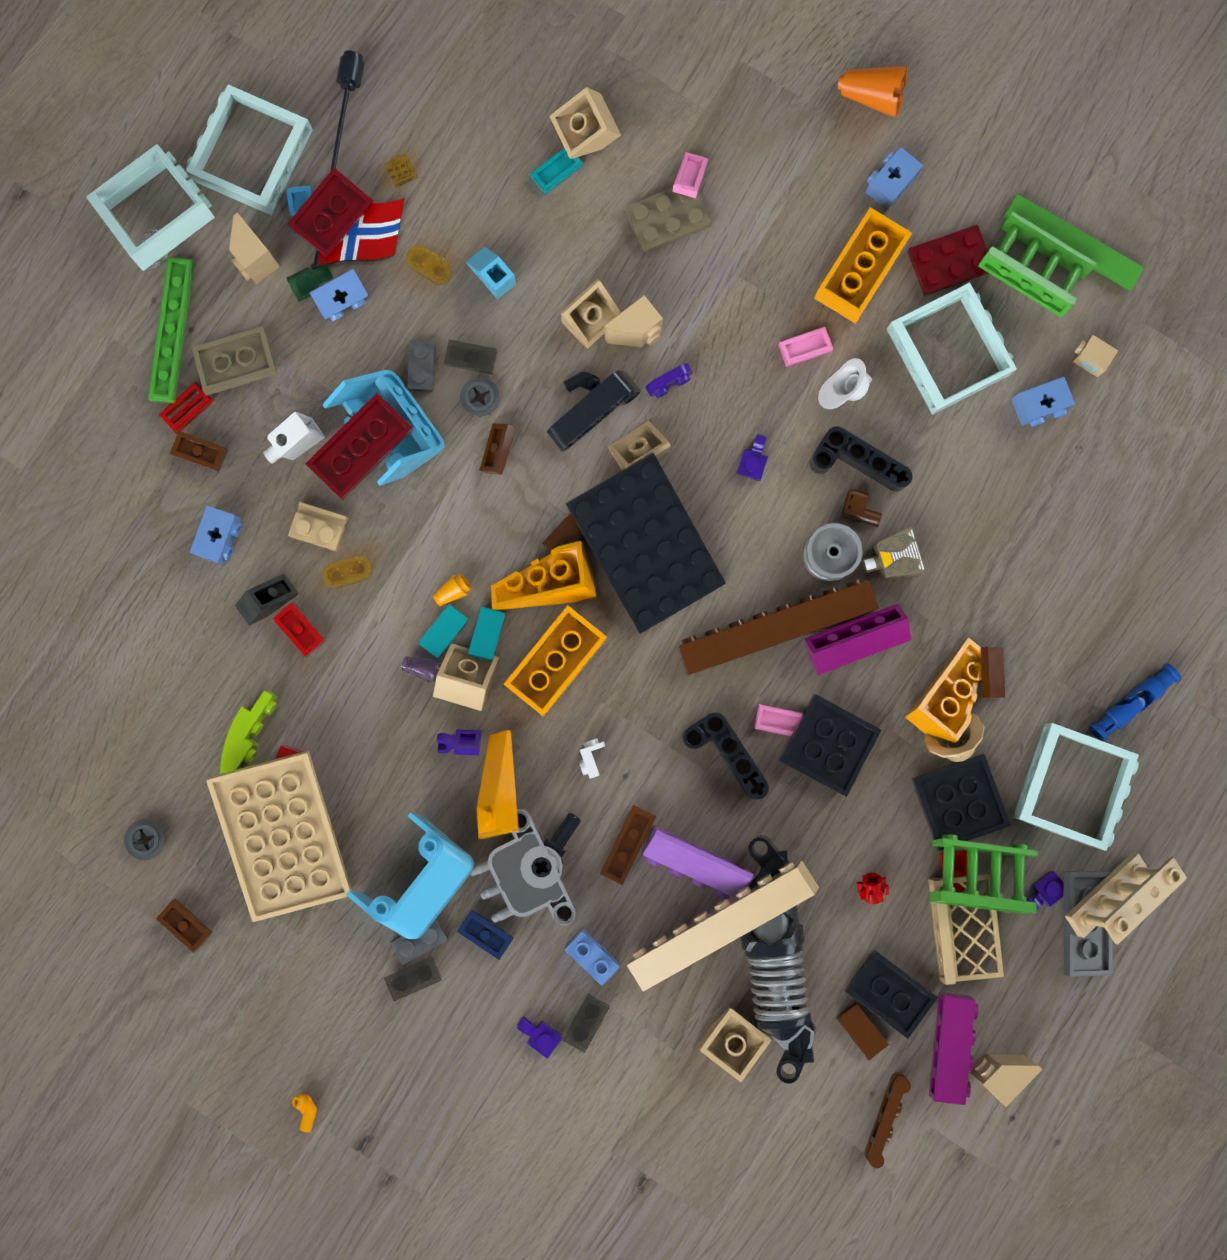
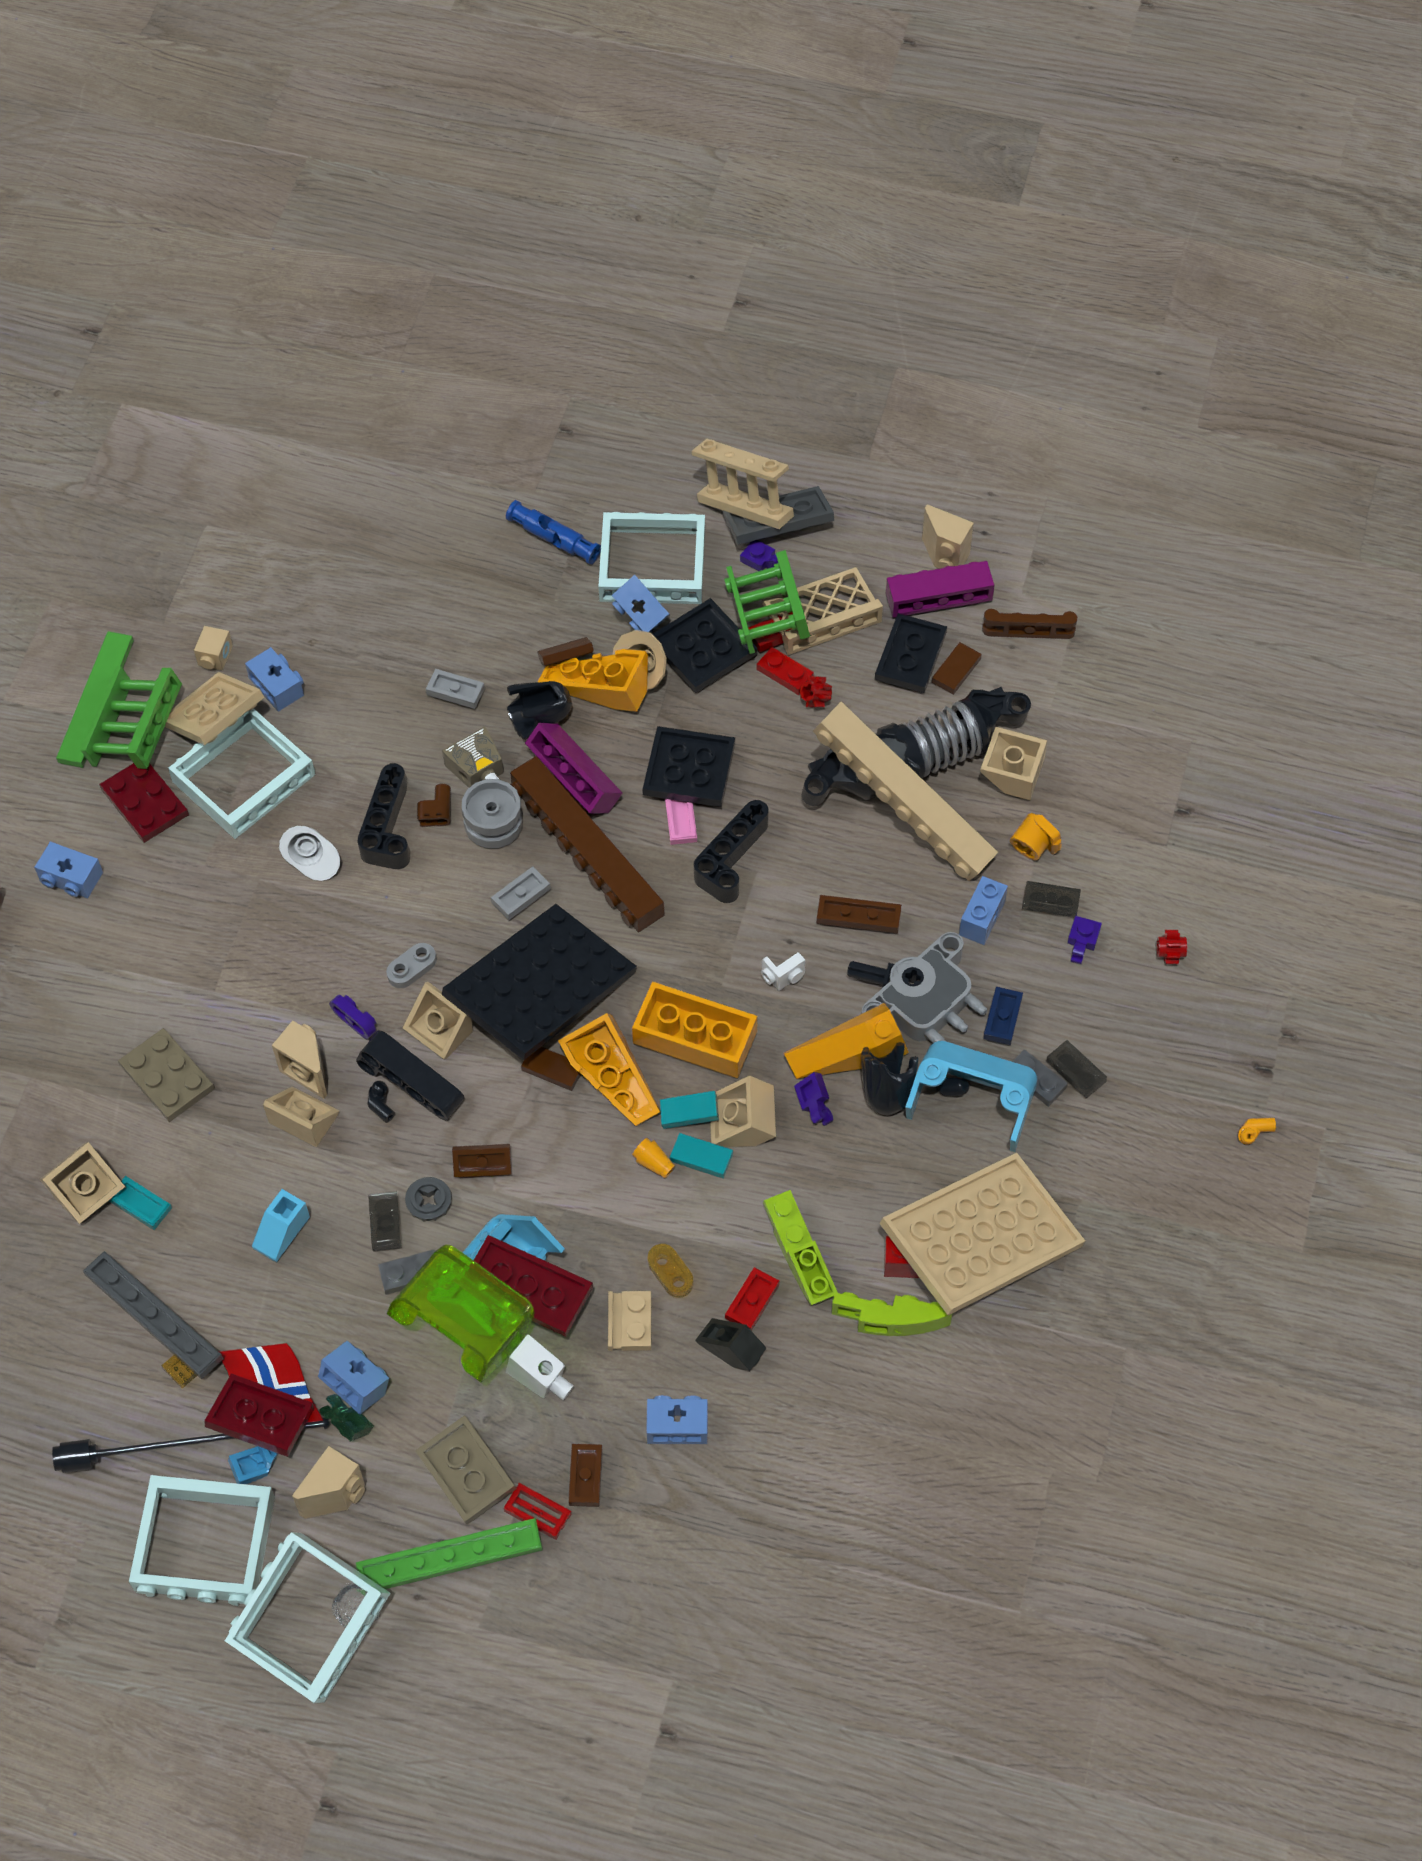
camera: 105 degrees left, 25 degrees down
(134, 834) = (1044, 1372): dark grey gear -> none
(184, 925) = (1118, 1310): reddish brown plate -> none
(326, 682) = (799, 1248): none -> lime slope
(344, 383) = (467, 1308): none -> clear neon green windscreen
(421, 667) = (748, 1159): clear purple cone -> none
(430, 264) = (290, 1299): clear yellow plate -> none
(450, 155) = (153, 1315): none -> dark grey tile
(452, 803) = (883, 1084): none -> black hair
(499, 1111) = (1171, 947): none -> red gear
(649, 1032) = (1035, 837): none -> light orange piece
(690, 175) = (114, 1061): bright pink tile -> none
(695, 862) = (852, 839): medium lavender slope -> none
(706, 443) = (413, 965): none -> light grey plate
(746, 556) = (520, 893): none -> light grey plate
(752, 462) = (418, 916): dark purple plate -> none
(805, 346) = (276, 904): bright pink tile -> none
(862, 265) = (175, 868): light orange brick -> none
(910, 869) = (783, 670): none -> red plate
(934, 628) = (537, 704): none -> black hair
(982, 560) = (455, 688): none -> light grey plate
(1022, 336) = (213, 708): none -> tan plate
(1030, 756) = (635, 590): none -> medium blue brick

